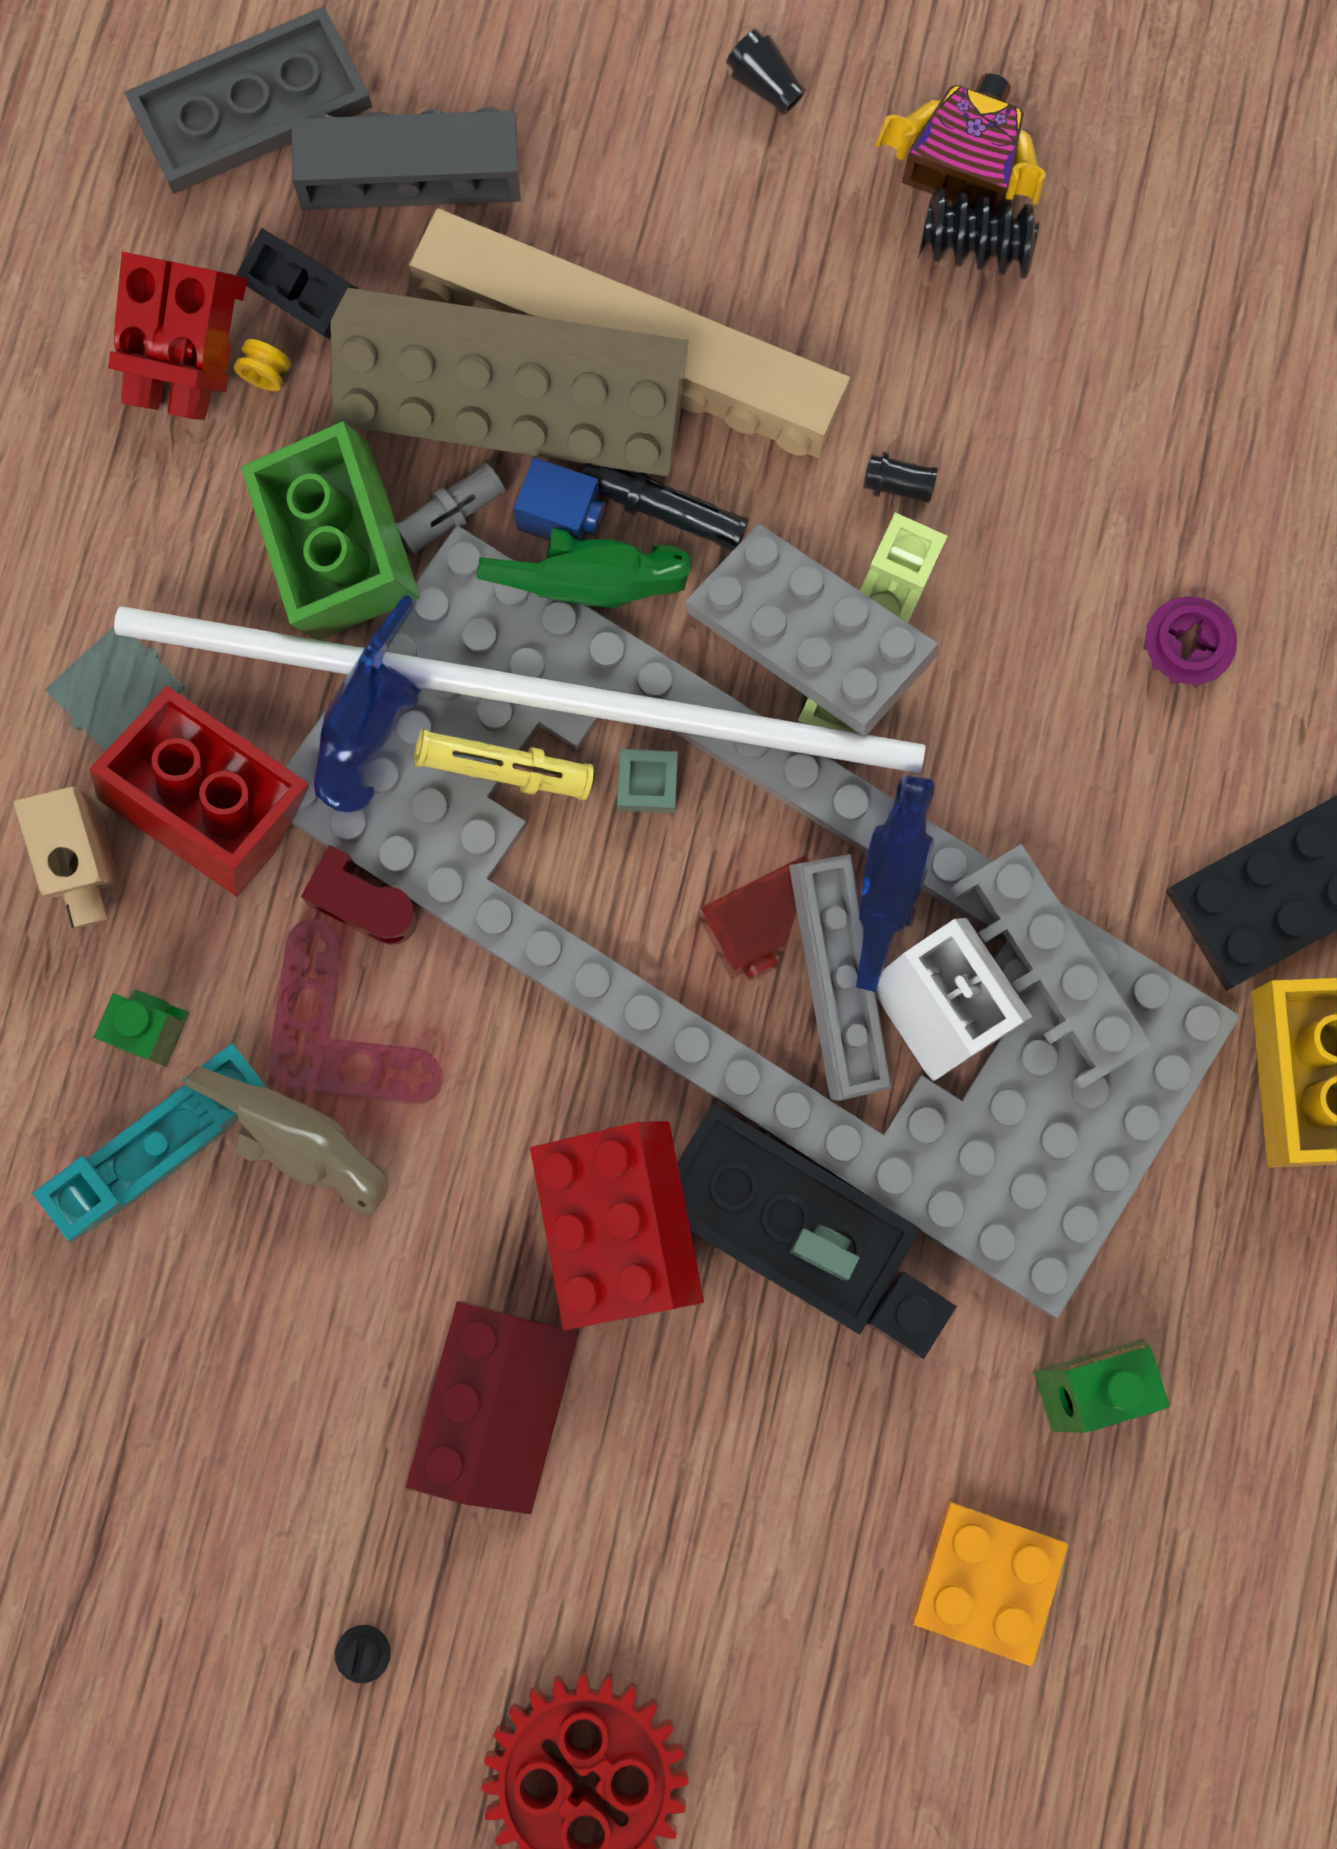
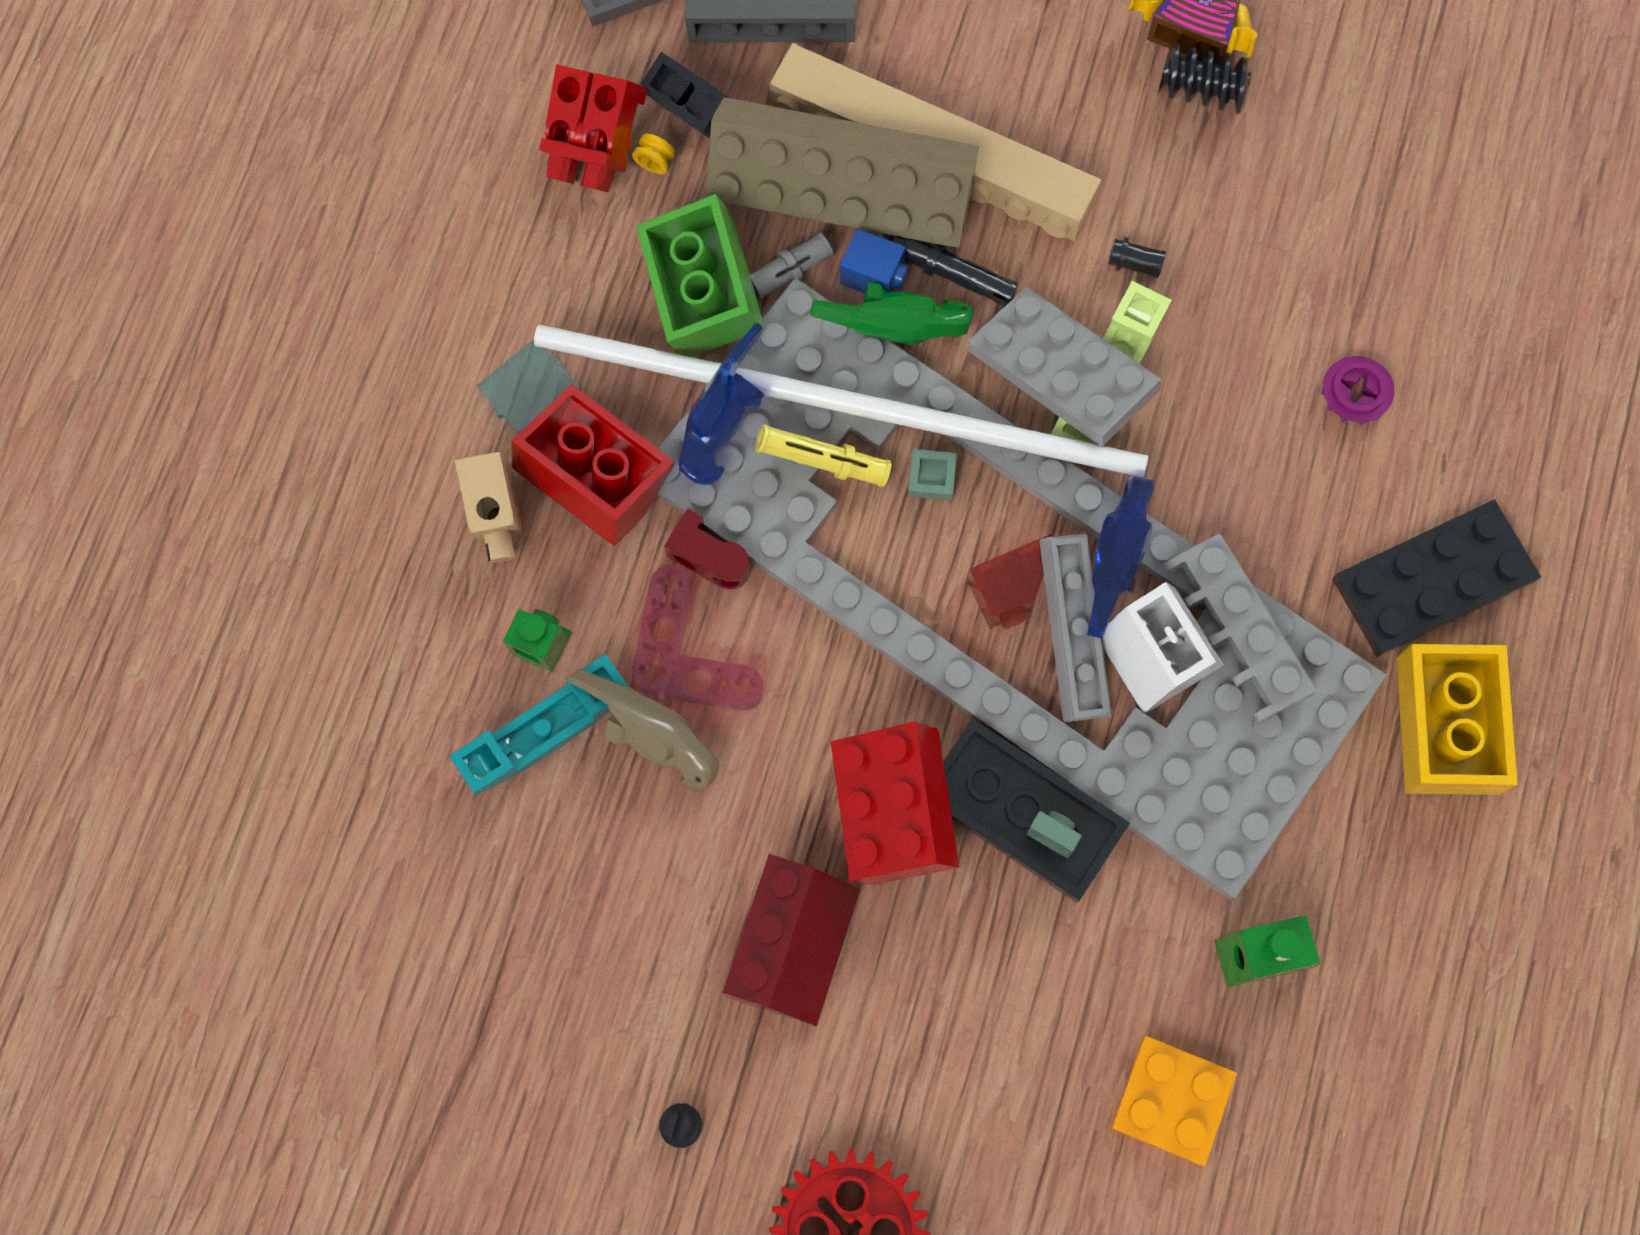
camera: 10 degrees right, 5 degrees down
(911, 1315) = (1119, 887): black brick -> none

